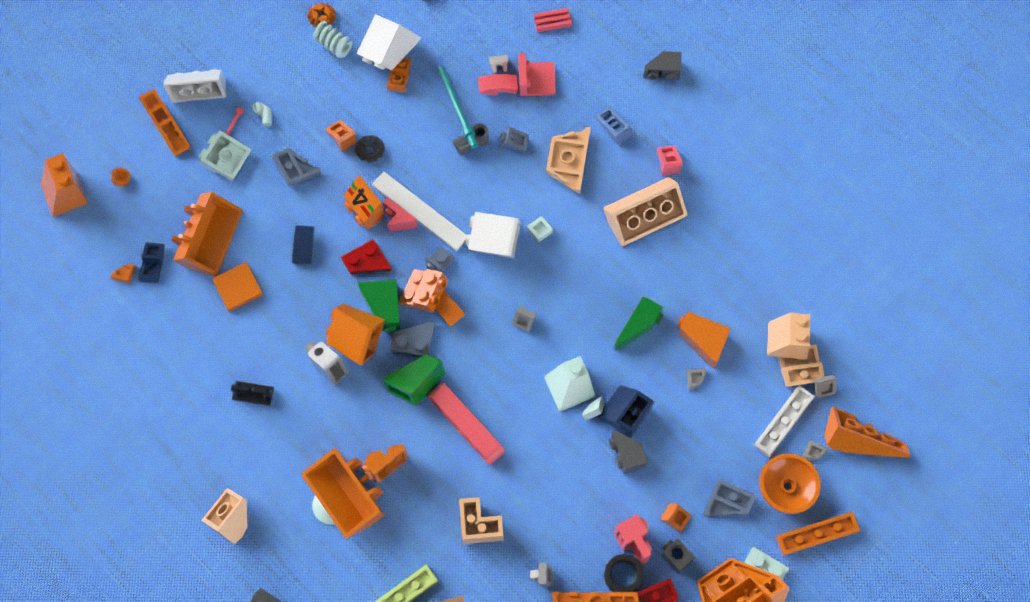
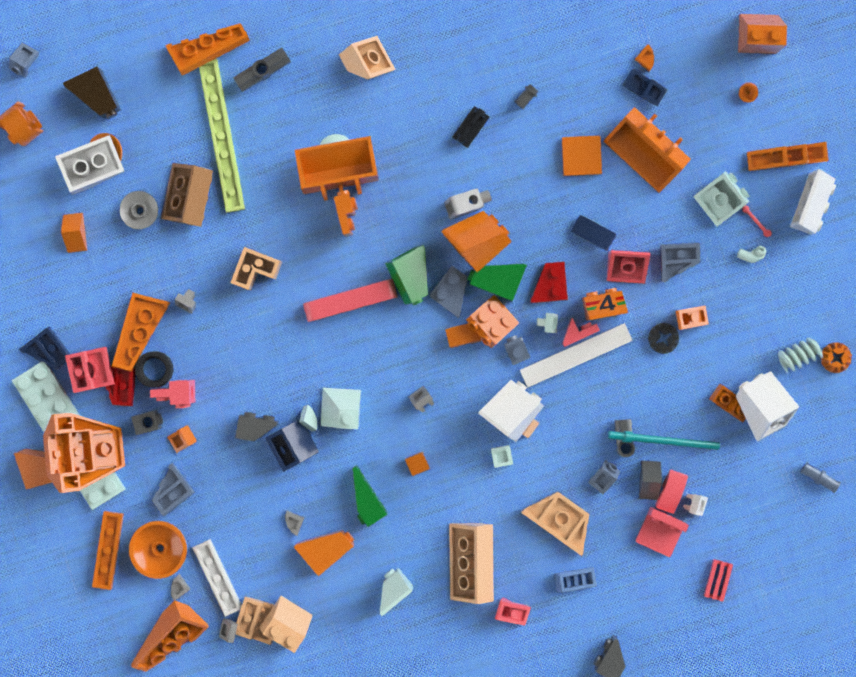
camera: 120 degrees right, 20 degrees up
(202, 357) = (526, 96): none -> dark grey pin
(320, 203) = (627, 266): none -> coral slope
(401, 243) = (549, 323): none -> light aqua tile
(496, 105) = (650, 480): none -> dark grey slope
(583, 297) = (417, 463): none -> orange slope
(707, 259) = (394, 589): none -> light aqua slope

